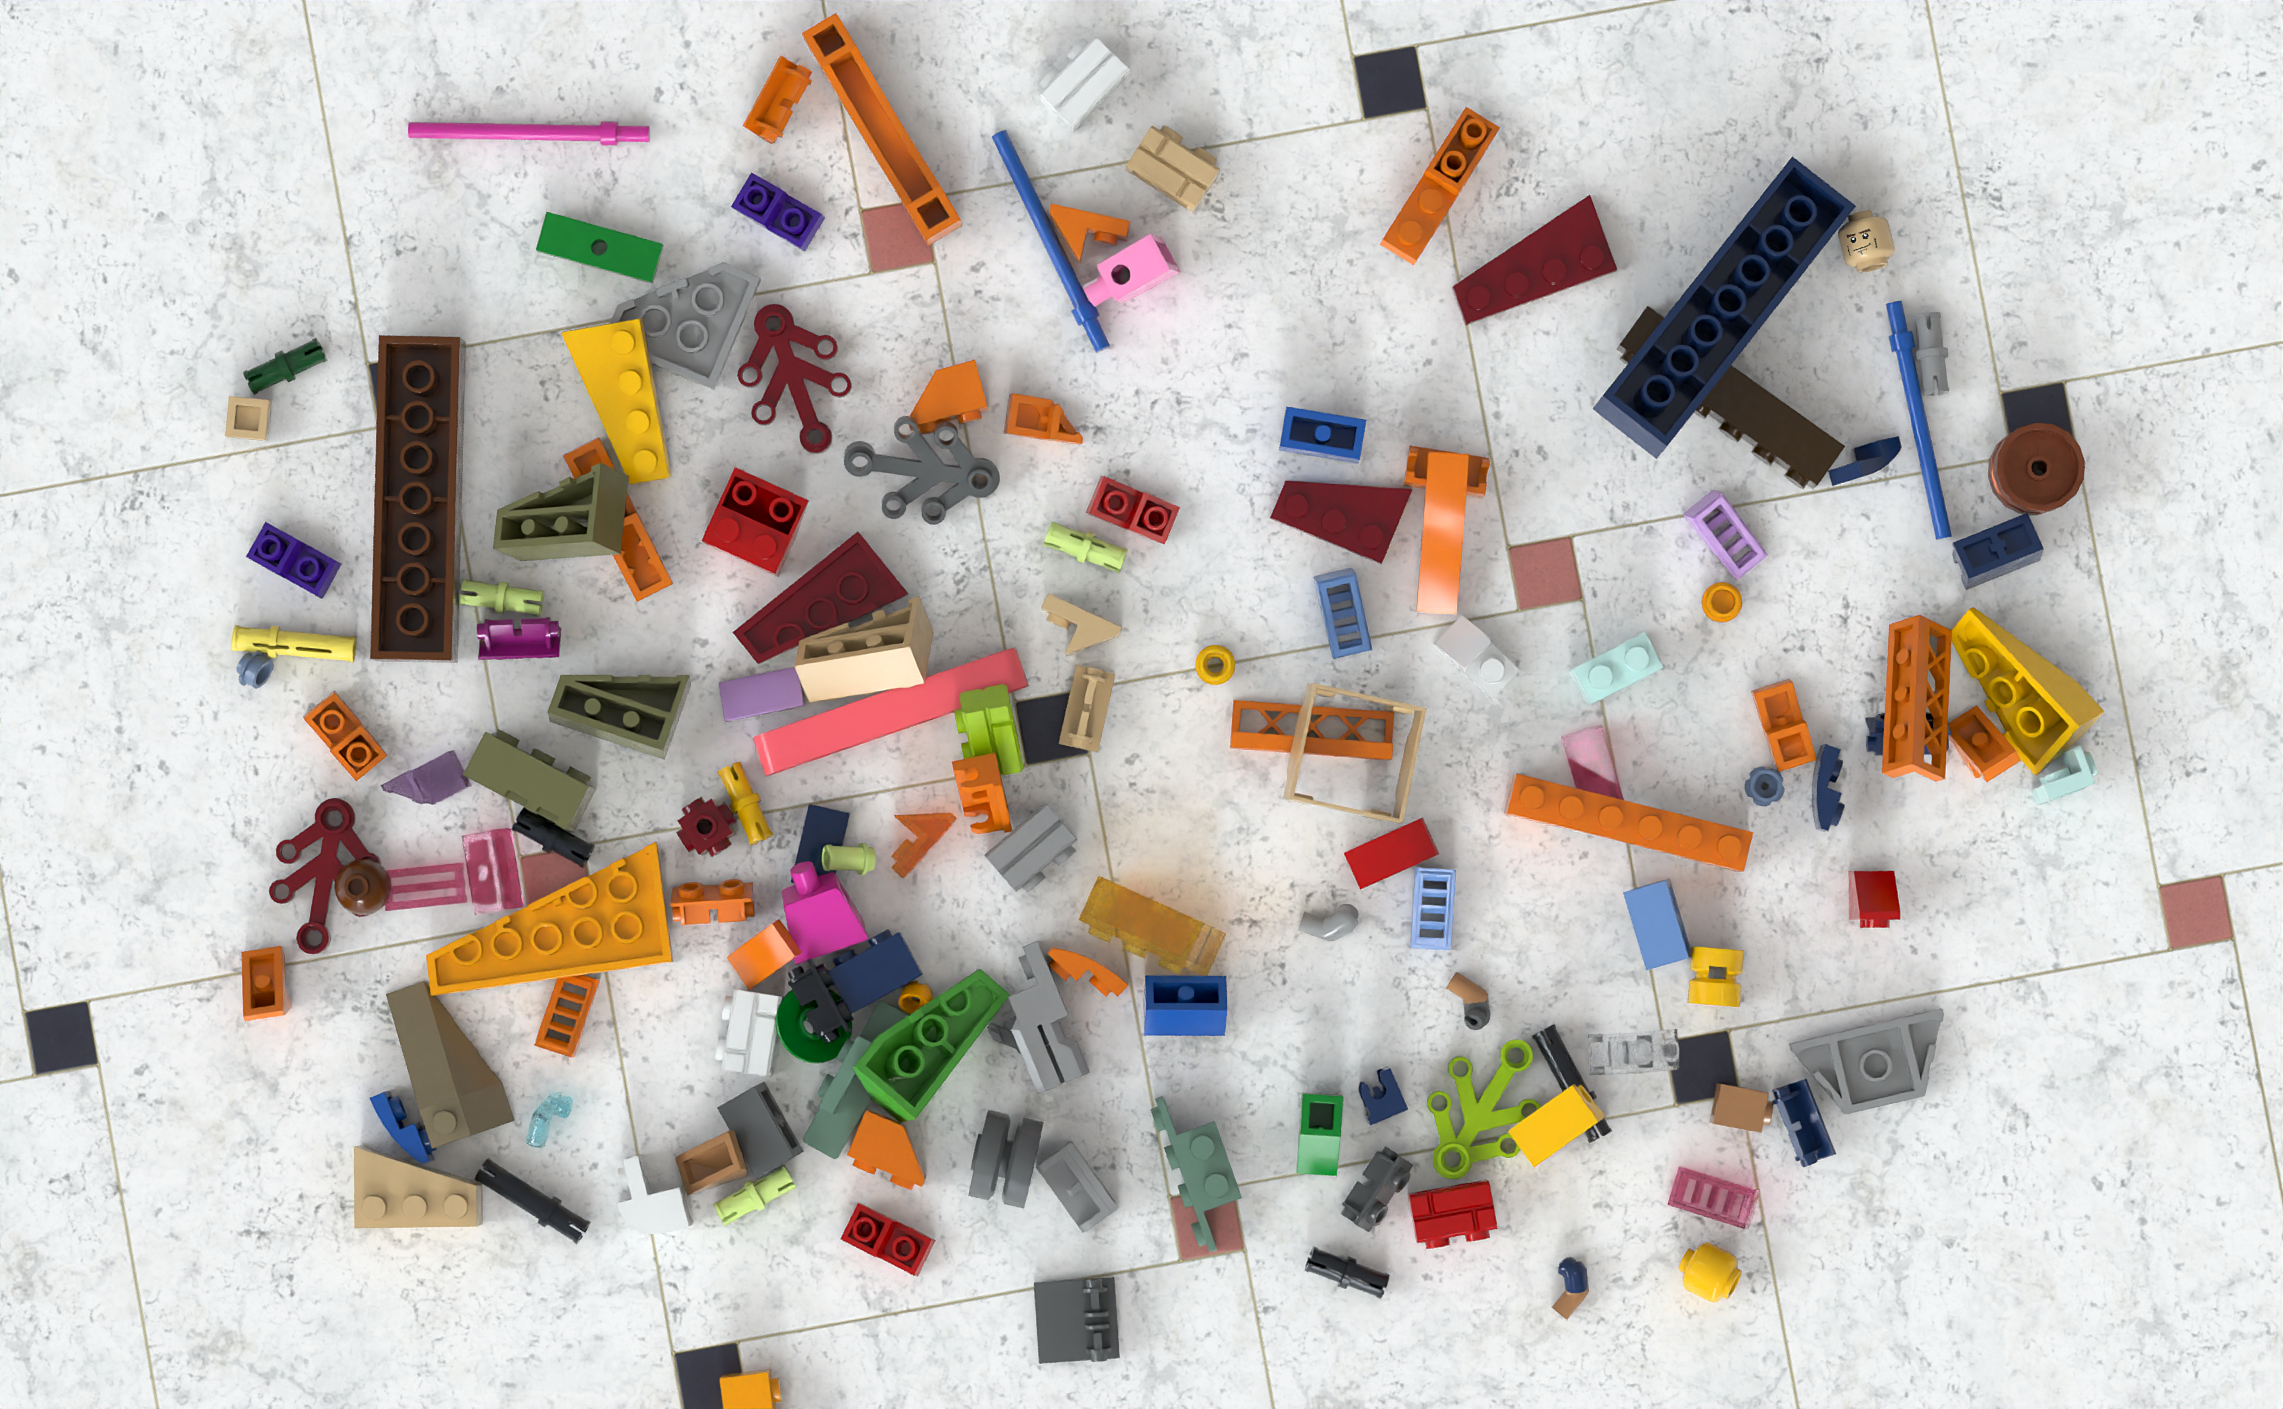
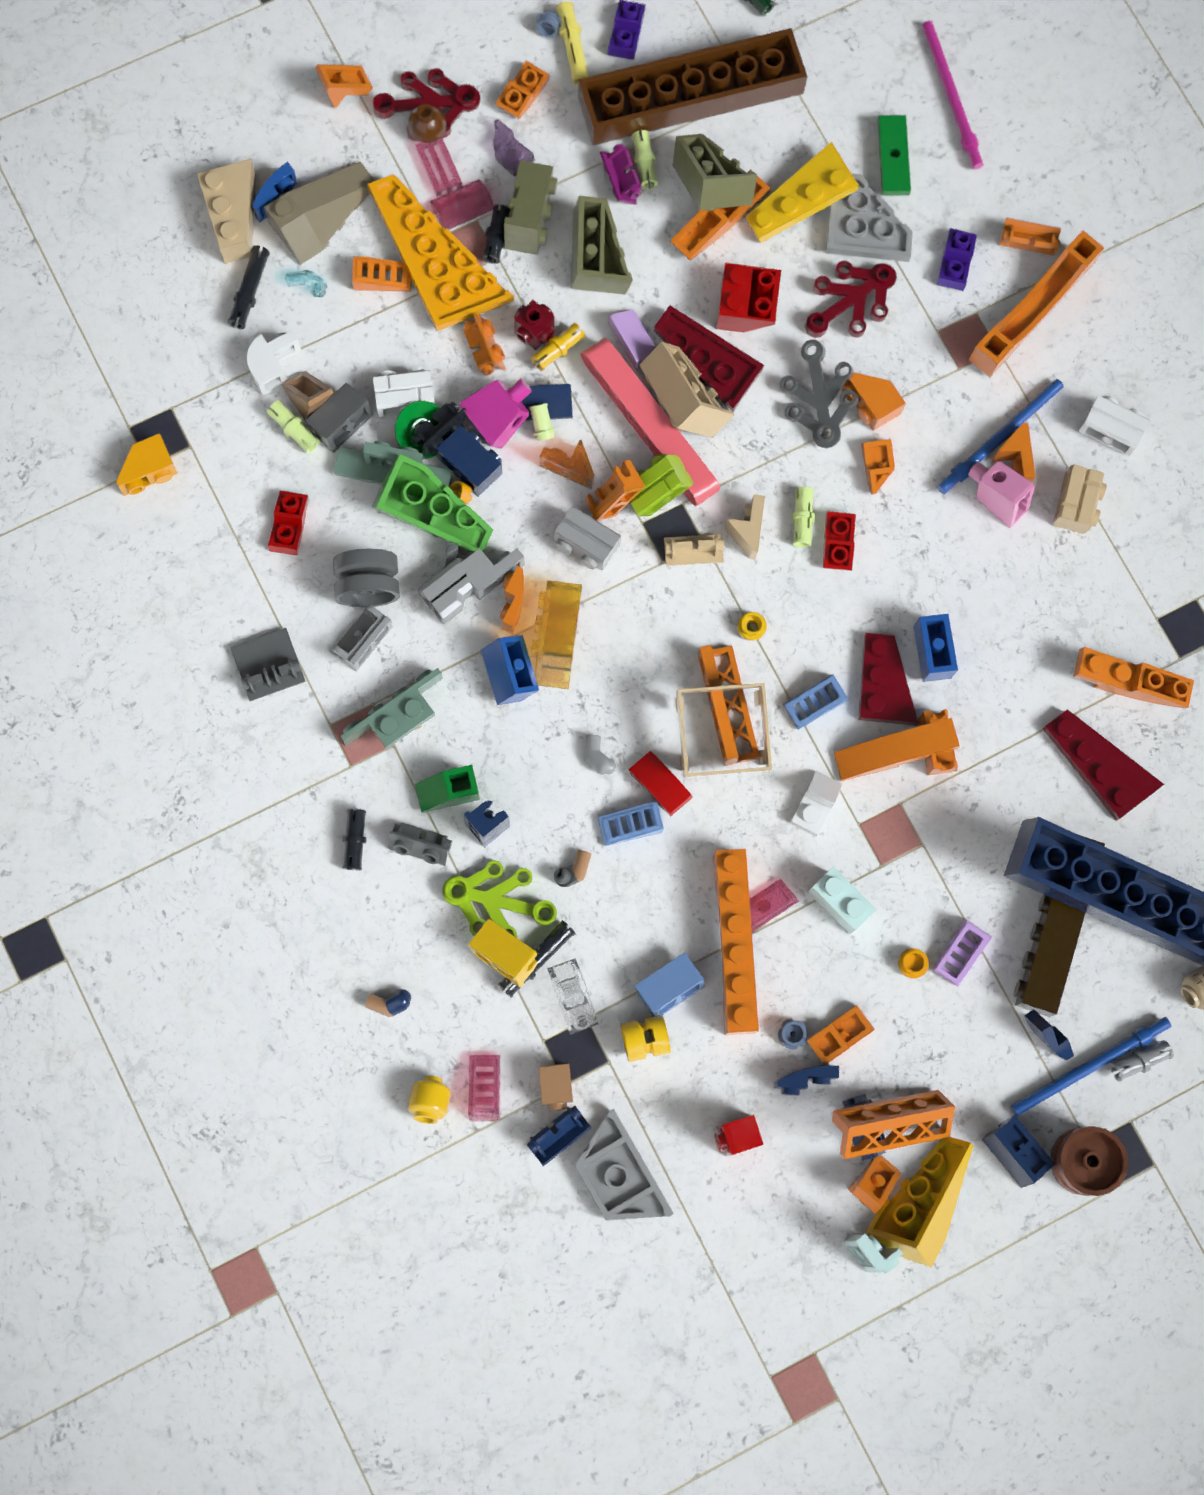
camera: 65 degrees right, 10 degrees down
(764, 954) = (459, 383): orange slope -> none
(886, 1146) = (352, 502): orange slope -> none
(1452, 1212) = (419, 900): red brick -> none

